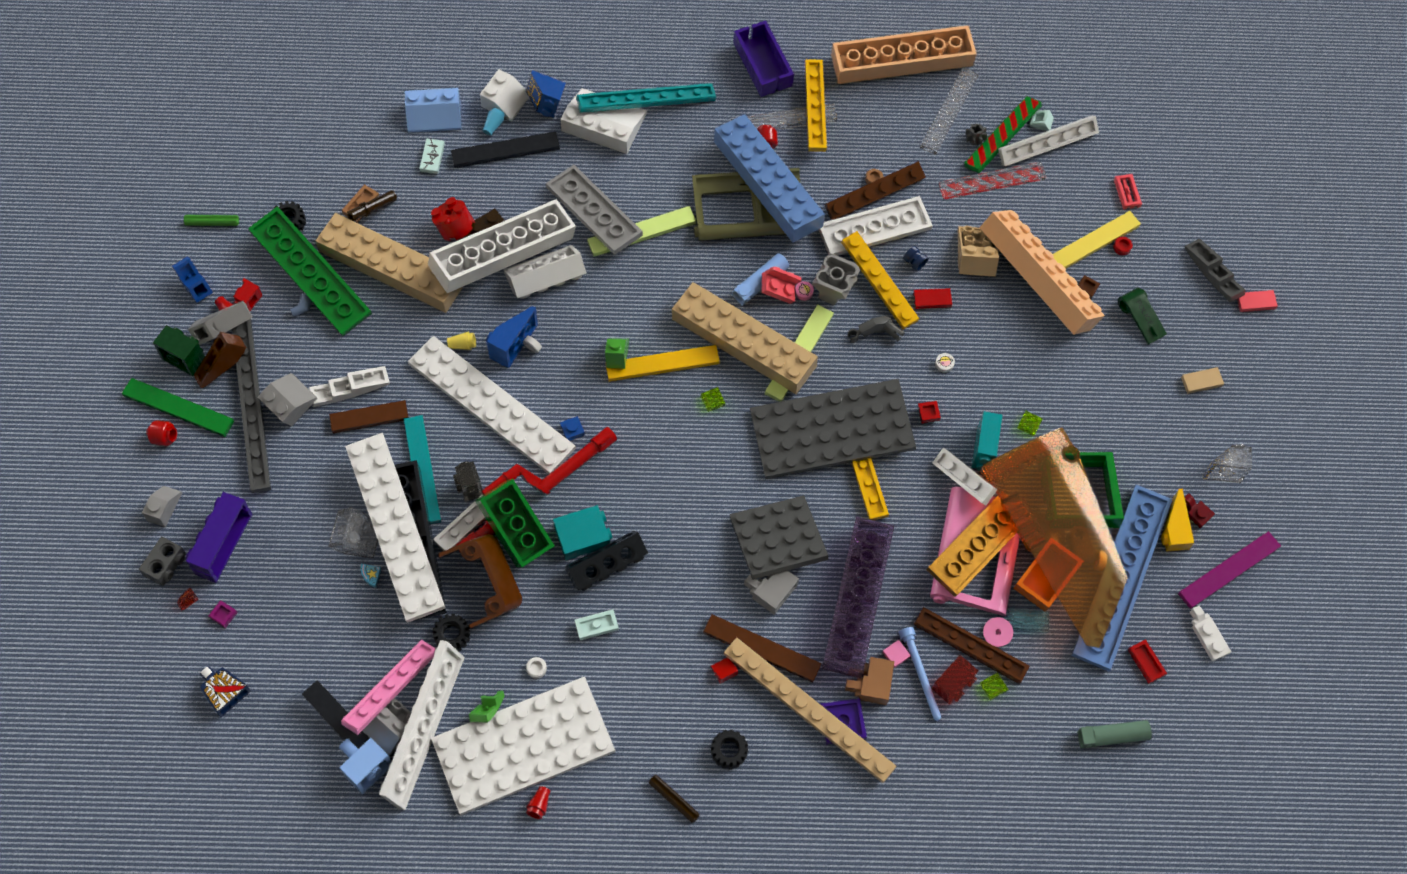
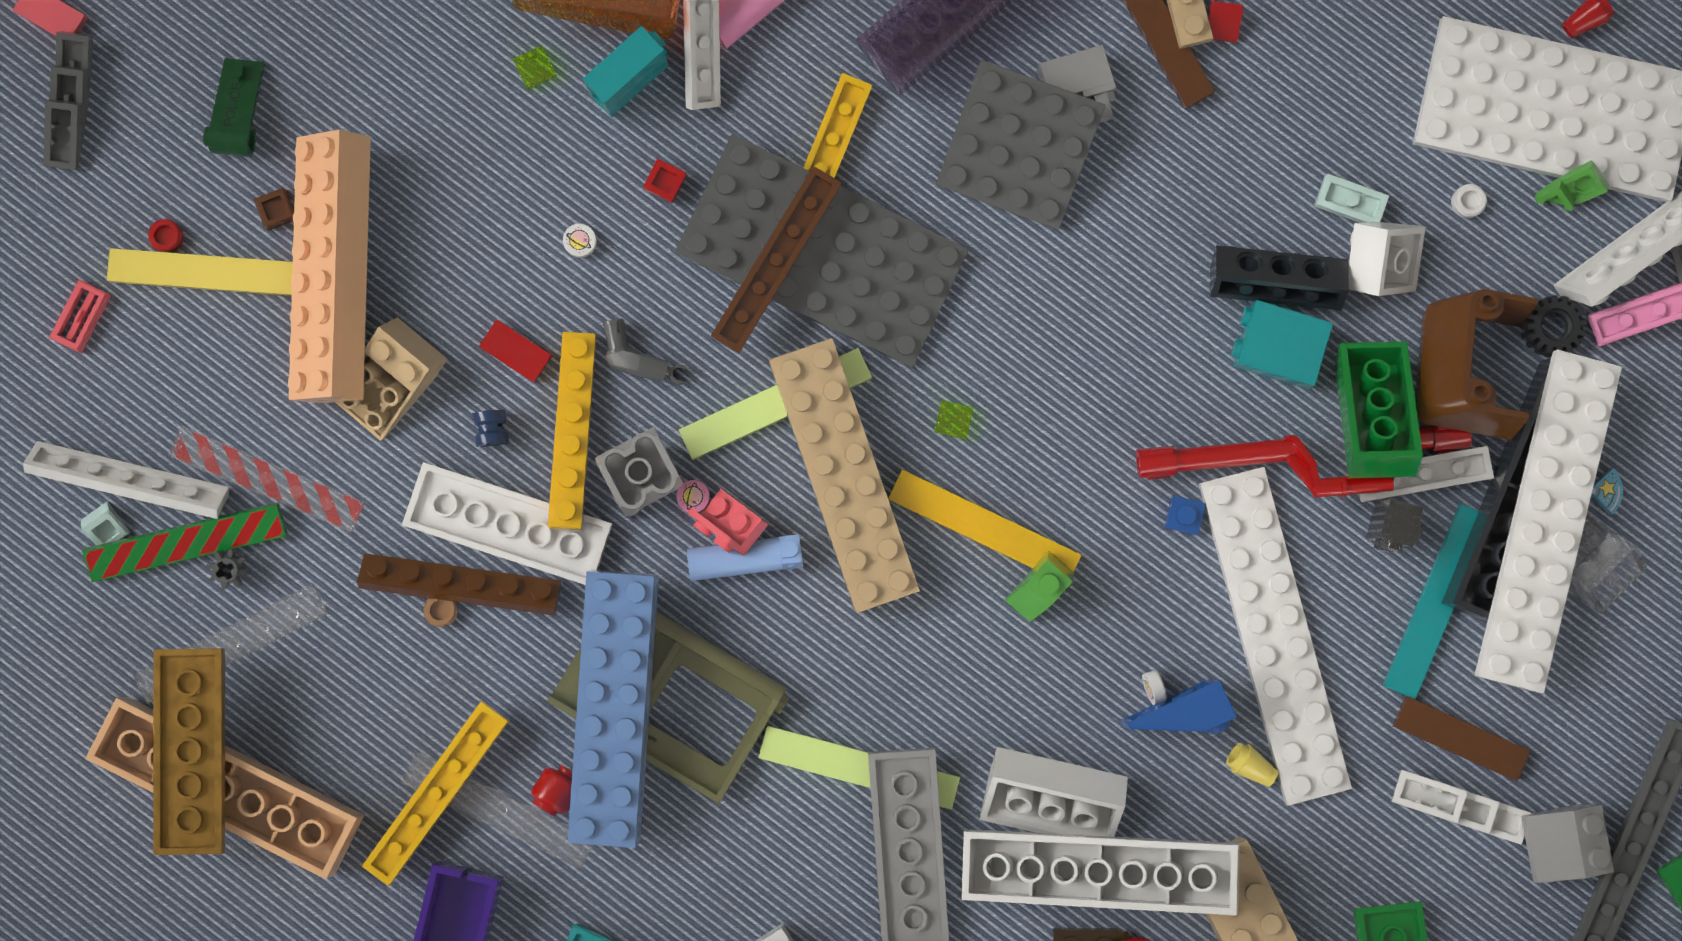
camera: 140 degrees left, 20 degrees up
(560, 604) = (1385, 257): none -> white slope
(850, 402) = (776, 260): none -> reddish brown plate
(929, 50) = (188, 751): none -> pearl gold plate

